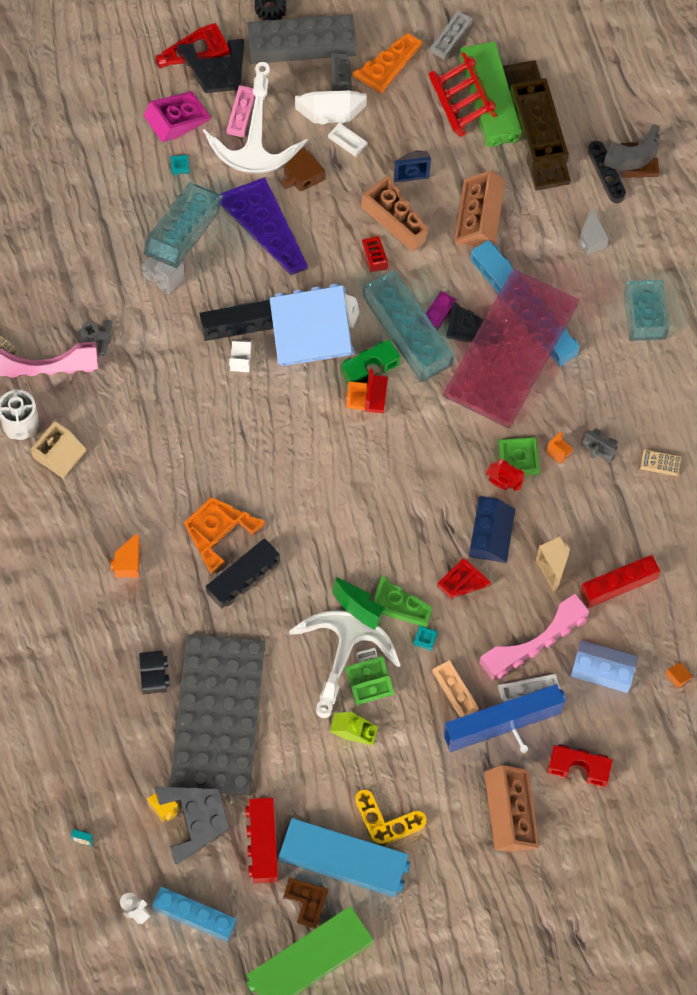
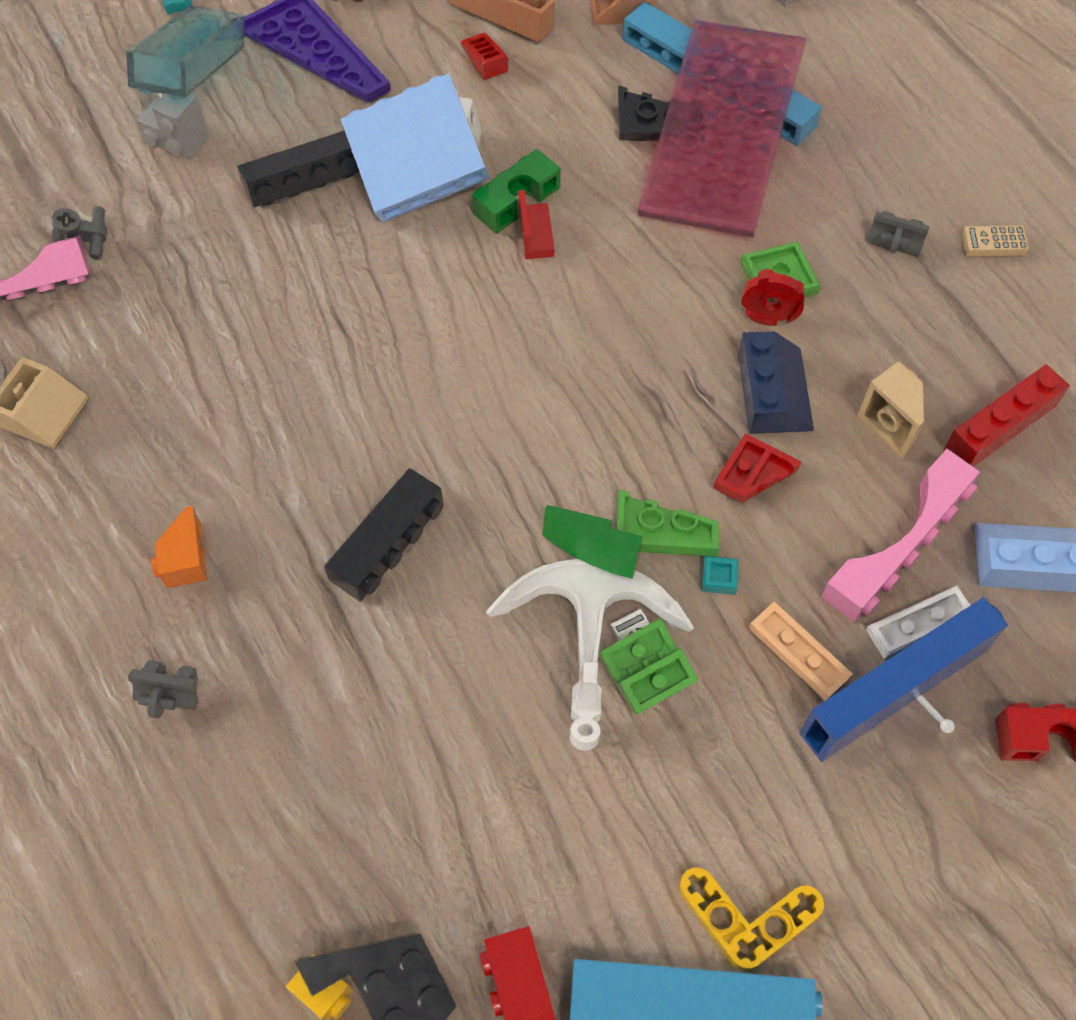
camera: 10 degrees left, 5 degrees down
(106, 636) = (164, 691): none -> dark grey hips
(153, 672) = (258, 737): black brick -> none
(212, 524) = (319, 465): orange wing -> none
(218, 714) = (391, 795): dark grey plate -> none
(240, 355) = (313, 214): white brick -> none
(353, 728) = (642, 757): lime slope -> none
(356, 395) = (507, 235): orange panel -> none
(408, 326) = (561, 127): clear light blue brick -> none
(440, 309) = (597, 107): magenta plate -> none
(511, 809) = (968, 844): nougat slope -> none
(558, 448) = (836, 251): orange panel -> none
(646, 310) = (898, 47): clear light blue brick -> none

